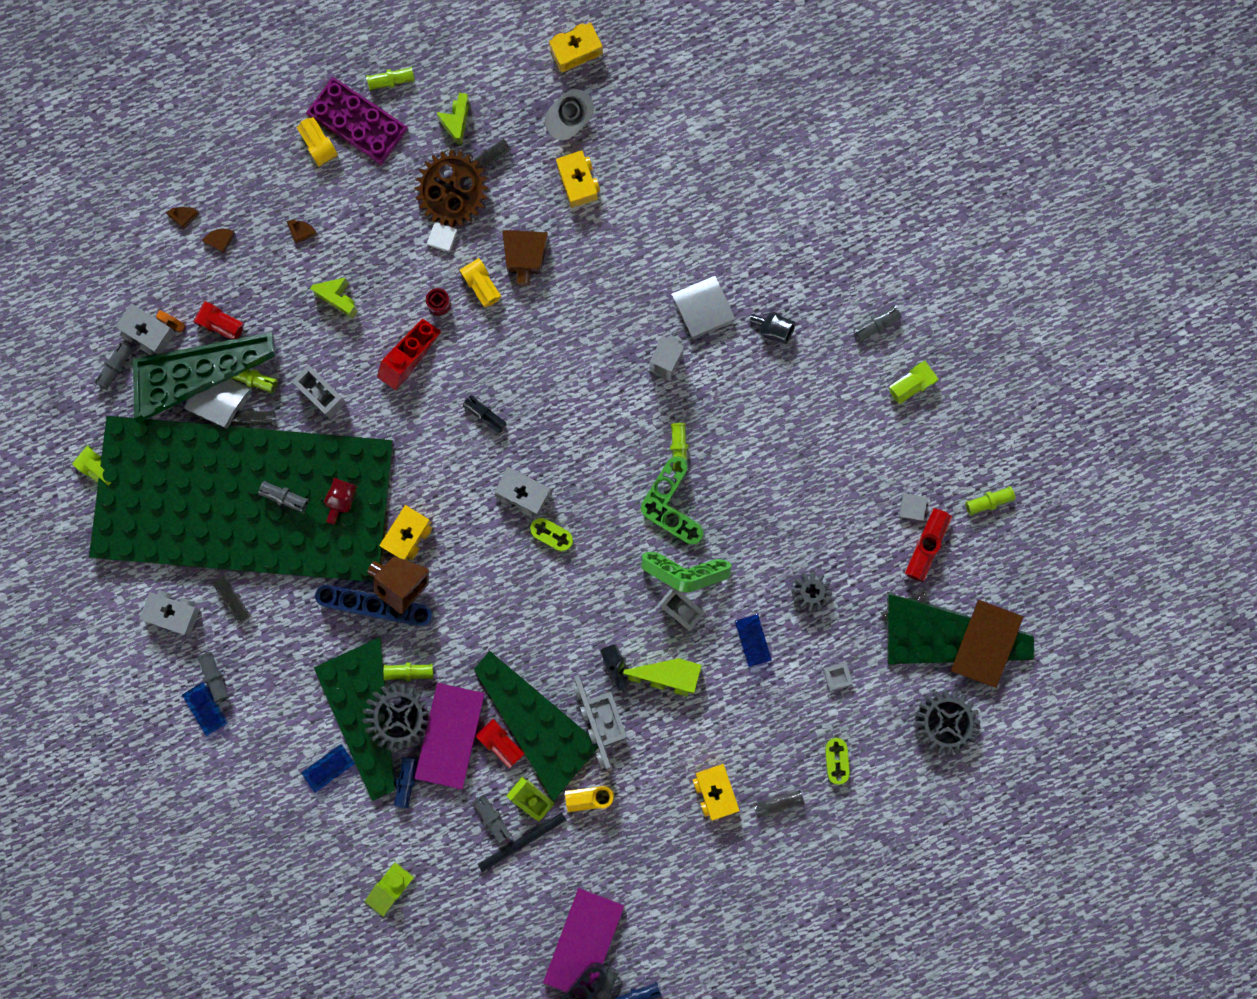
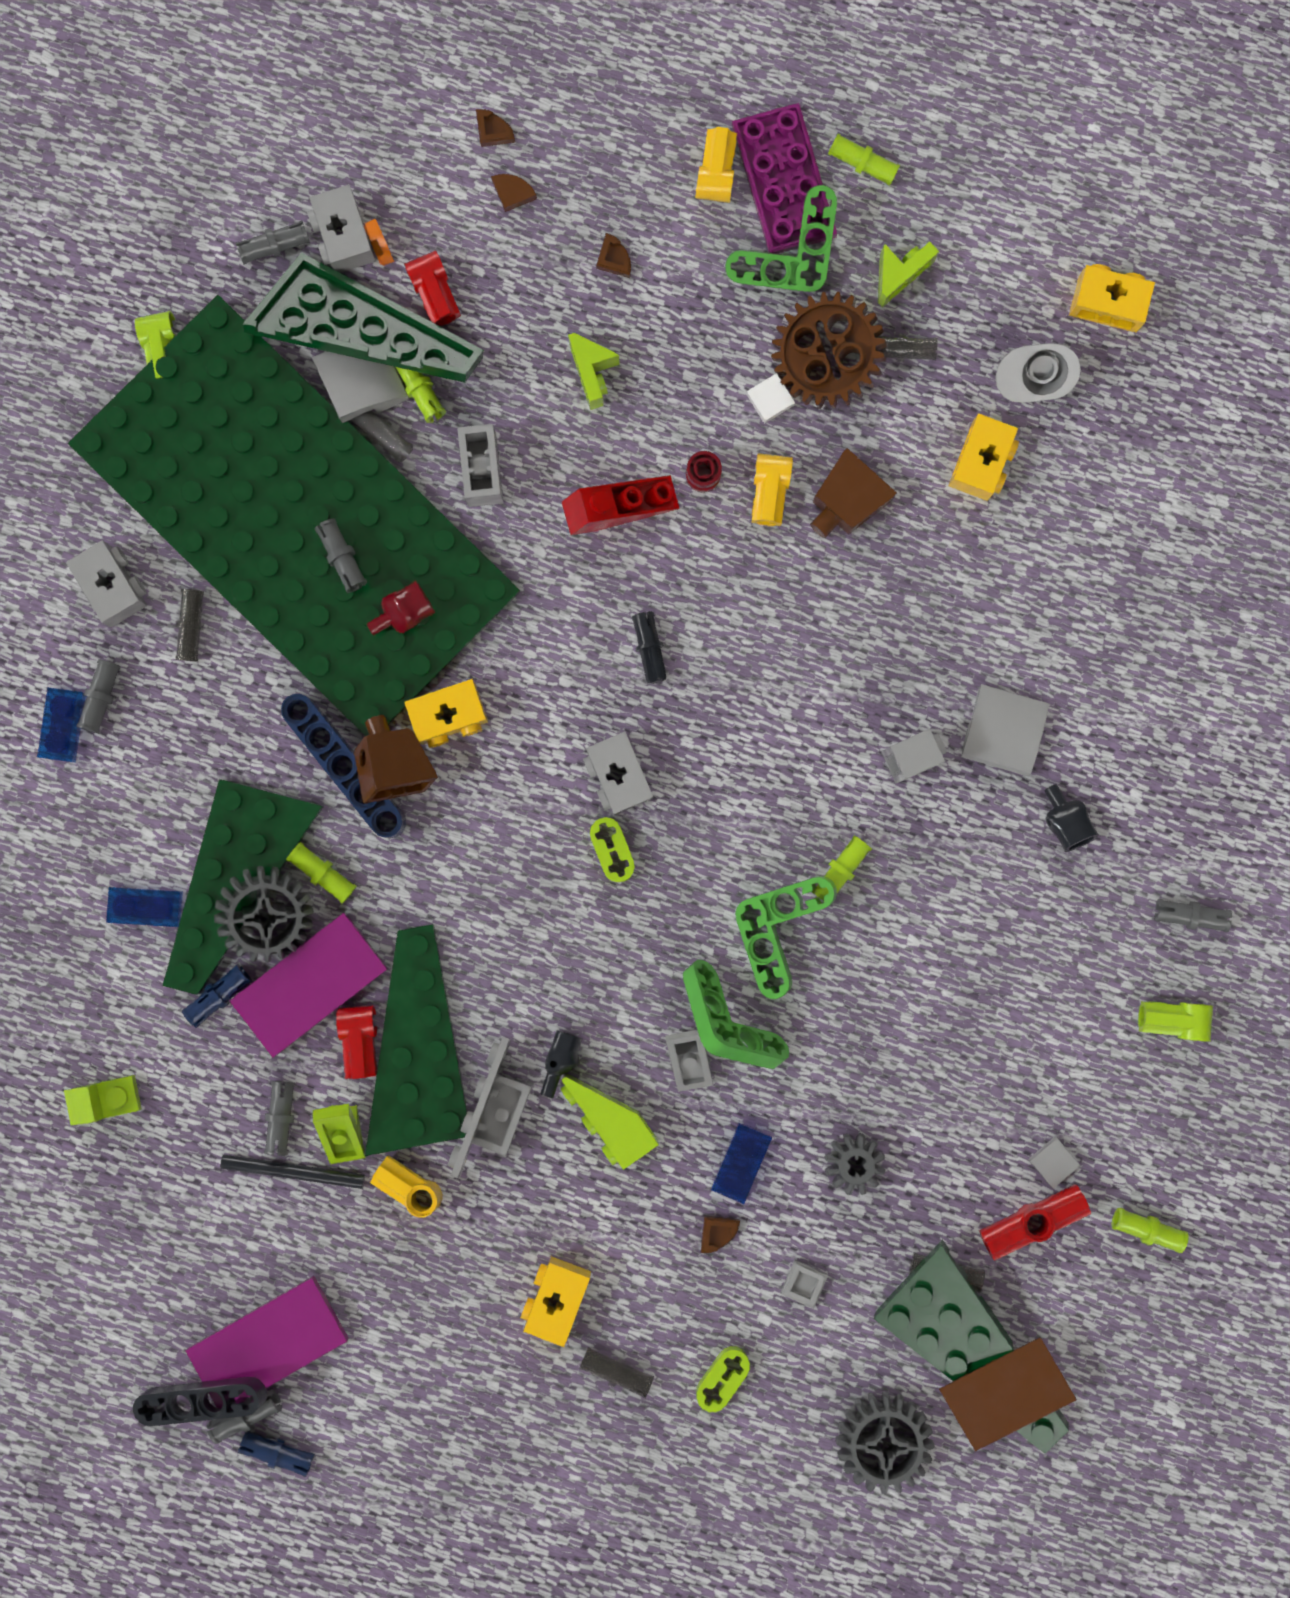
camera: 35 degrees right, 5 degrees up
(398, 159) = (793, 264): none -> bright green beam
(771, 687) = (717, 1232): none -> reddish brown tile

